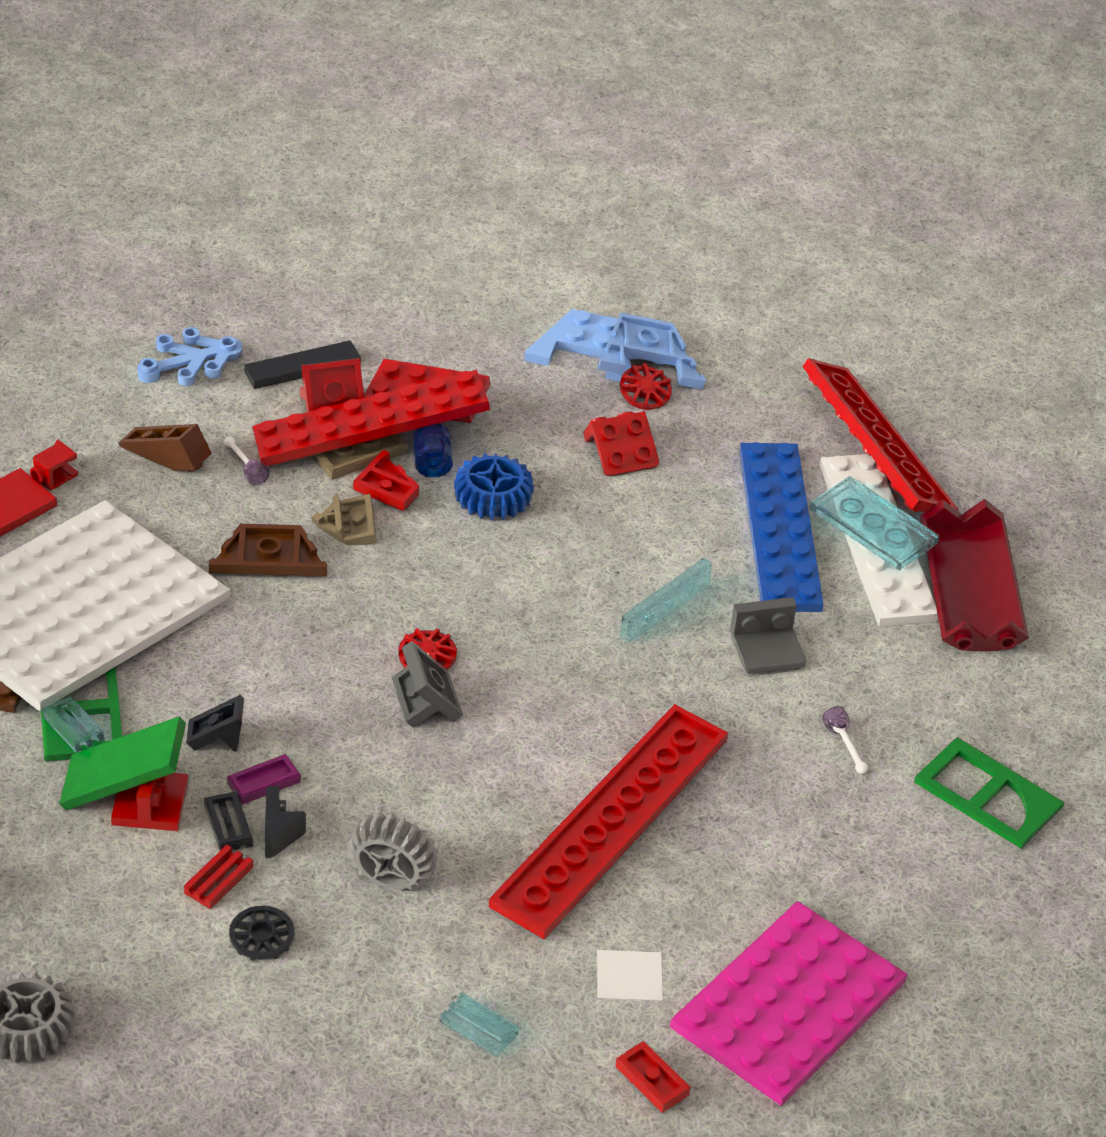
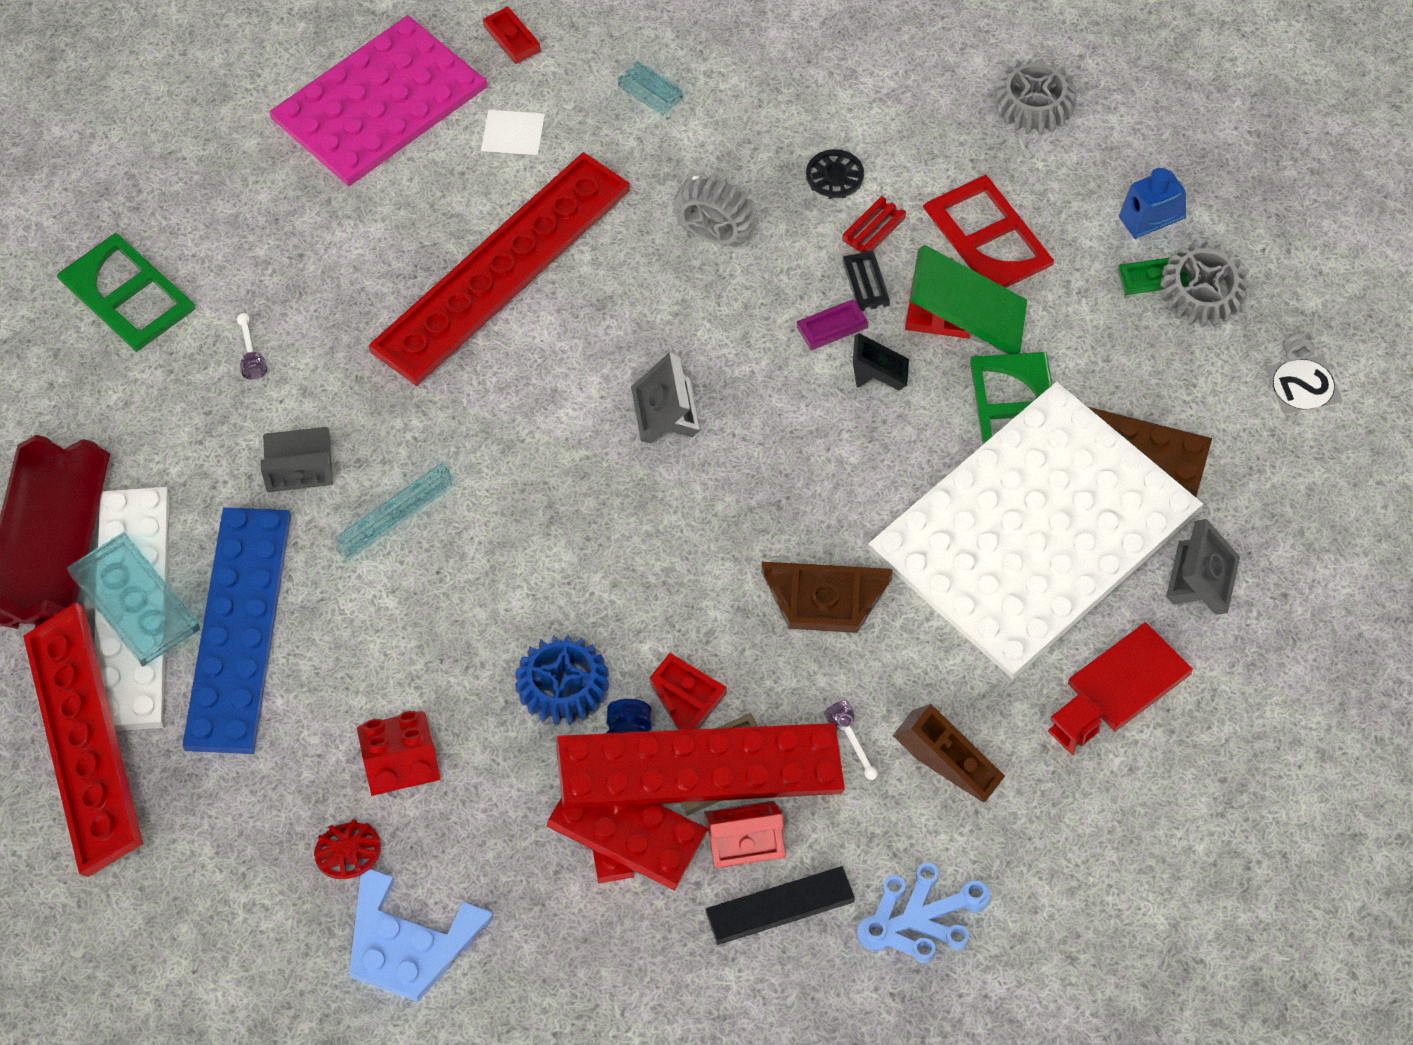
camera: 170 degrees left, 15 degrees up
(60, 723) = (1009, 377): clear light blue tile -> none
(94, 835) = (1001, 272): none -> red window
(281, 826) = (816, 261): black slope -> none
(349, 520) = (732, 645): dark tan slope -> none
(437, 650) = (659, 467): red wheel -> none
(651, 341) = (336, 917): light blue wing -> none

